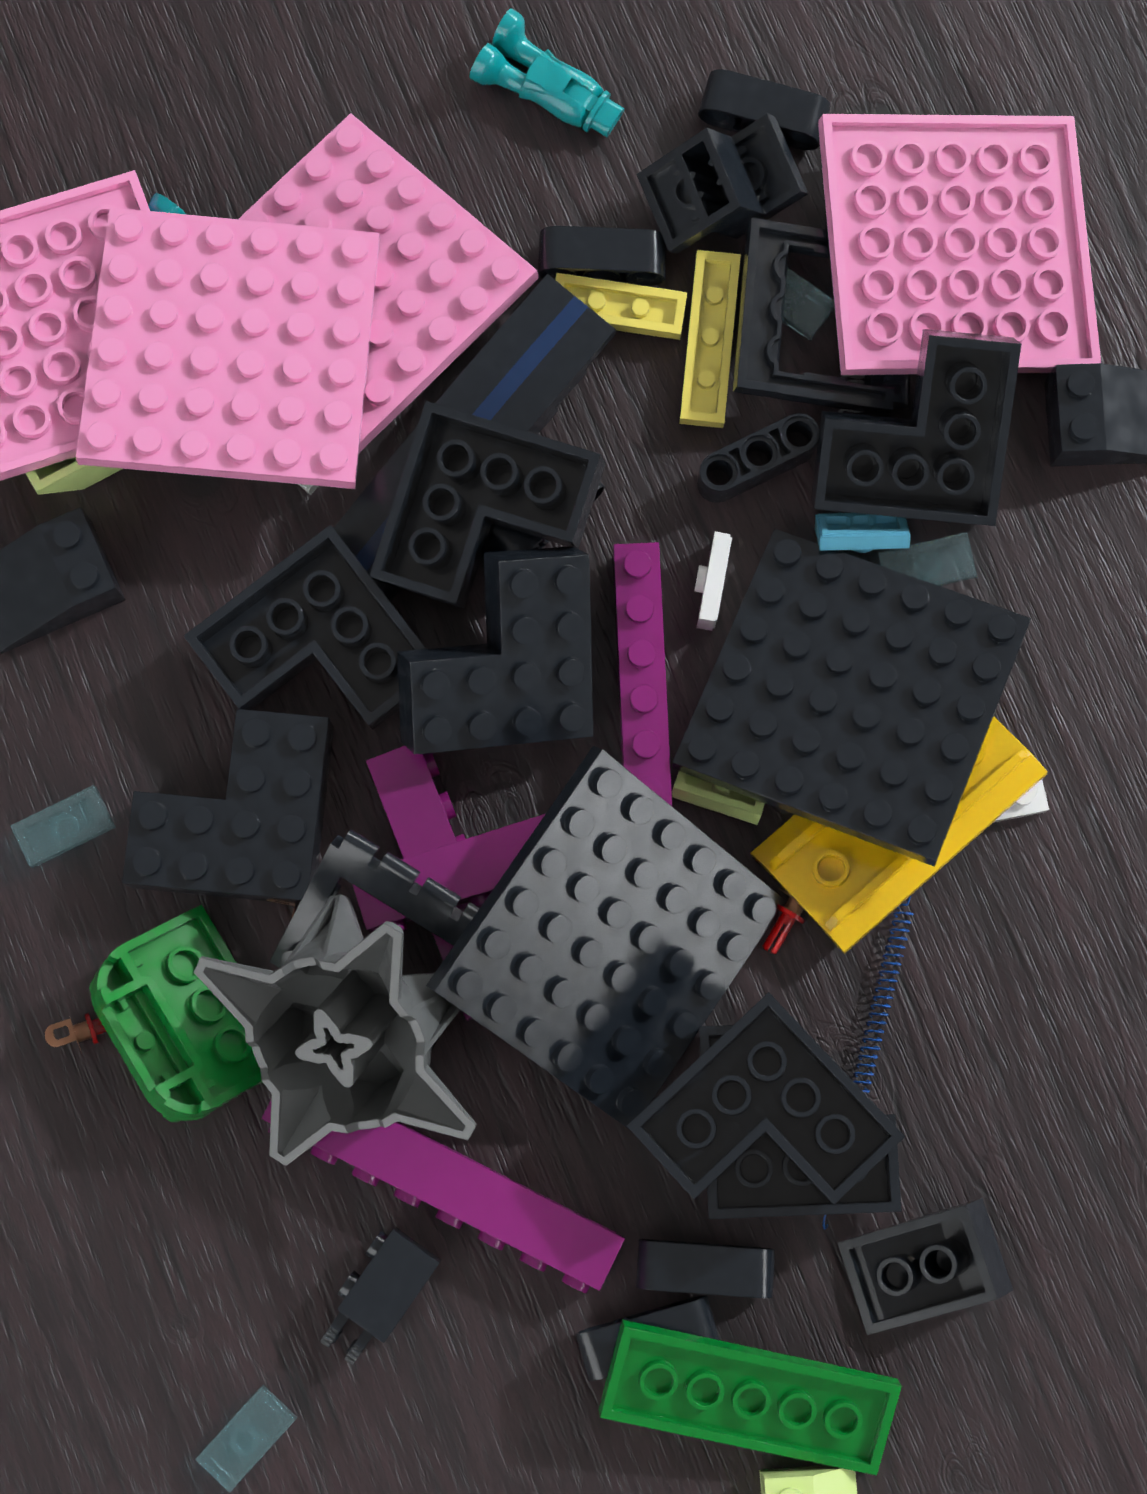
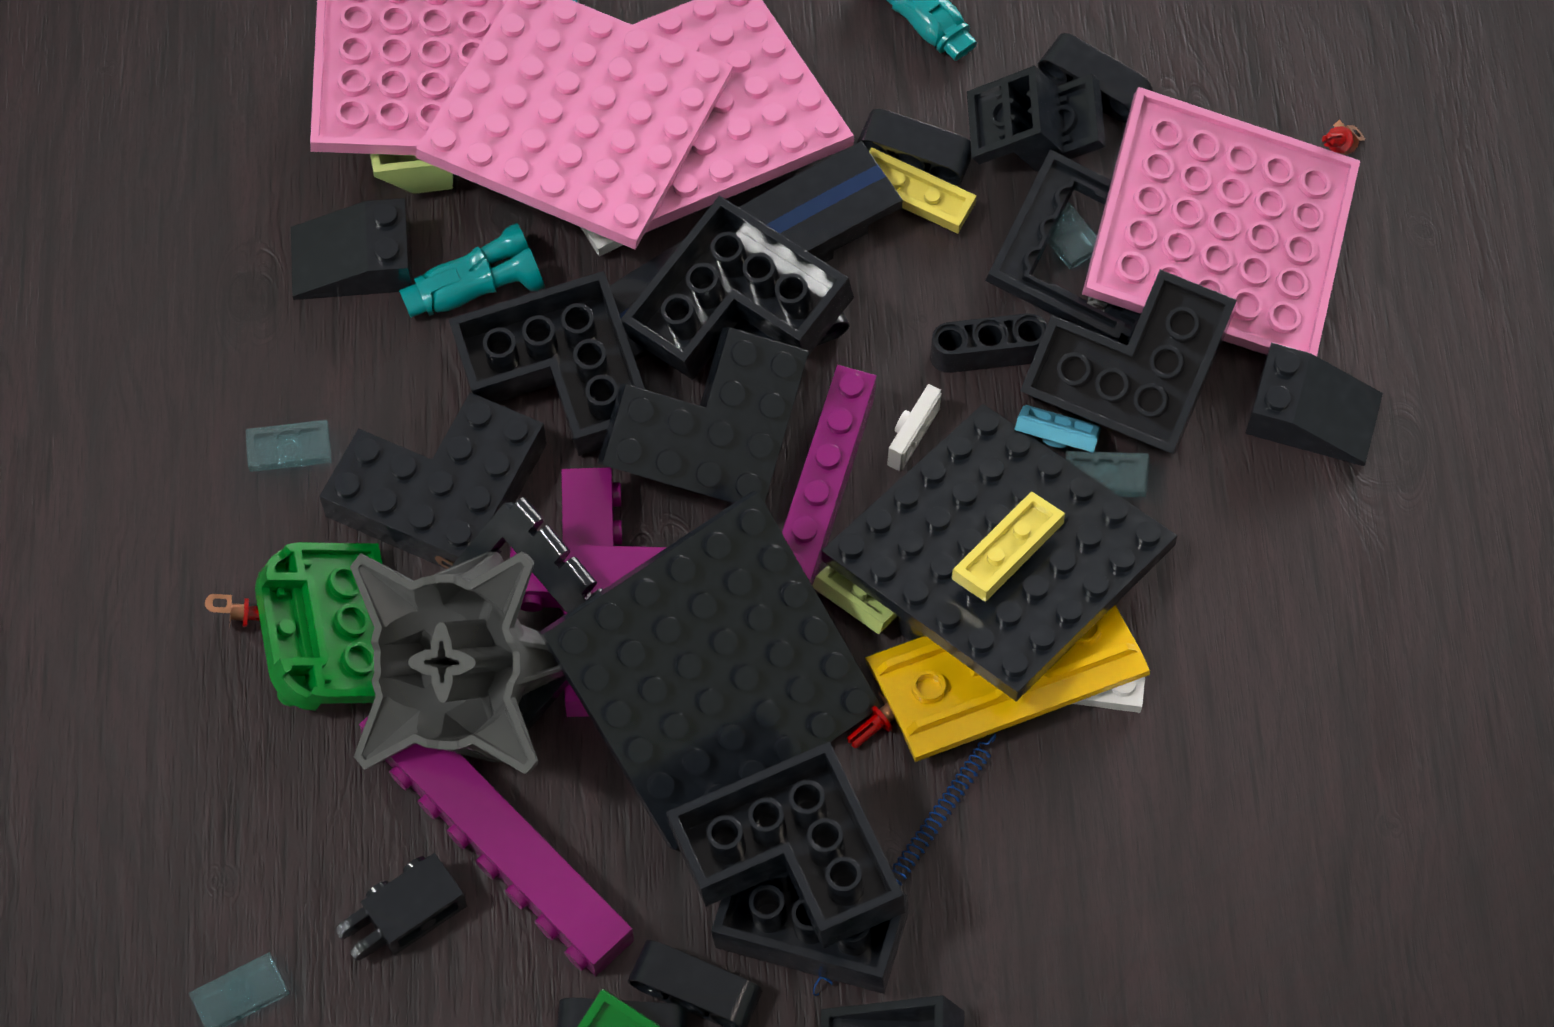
camera: 20 degrees right, 15 degrees down
(183, 567) = (471, 276): none -> teal piece
(710, 339) = (982, 239): light yellow plate -> none
(869, 699) = (1008, 546): none -> light yellow plate
(1046, 95) = (1342, 138): none -> red piece

